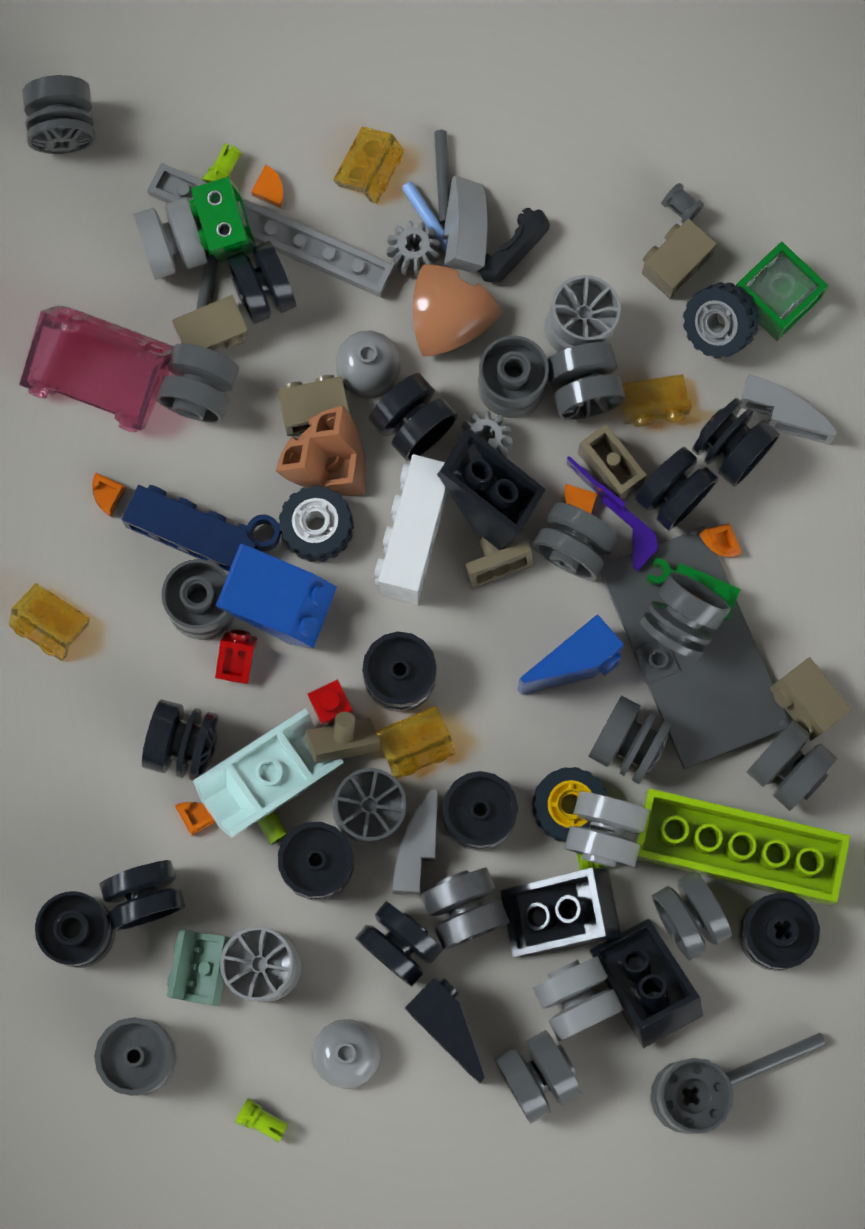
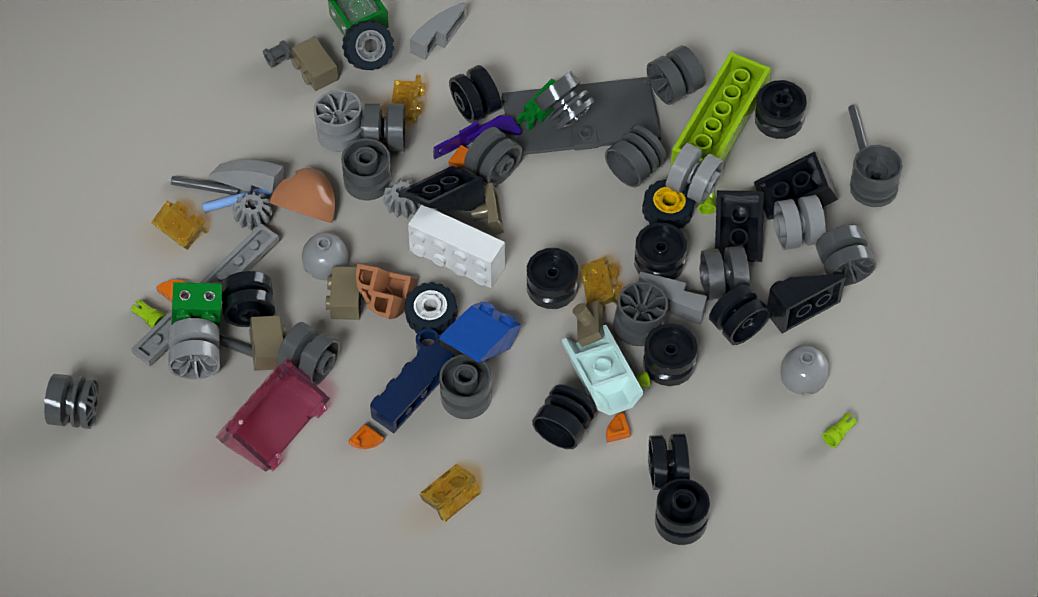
camera: 75 degrees left, 20 degrees down
(126, 1037) = (780, 492): dark grey wheel -> none
(197, 968) = (726, 442): sand green bracket -> none
(236, 656) = (511, 377): red bracket -> none
(260, 964) = (734, 400): light grey wheel -> none
(328, 702) = (562, 325): red brick -> none
(408, 411) = (369, 232): black wheel -> none
(531, 229) = (262, 137): black piece -> none
(578, 658) = (568, 171): blue slope -> none
(611, 462) = (443, 126): dark tan brick -> none
(691, 915) = (759, 148): dark grey wheel -> none
(721, 540) = (514, 85): orange tile -> none
(735, 441) = (453, 54): black wheel -> none
(810, 698) = (632, 58): dark tan brick -> none

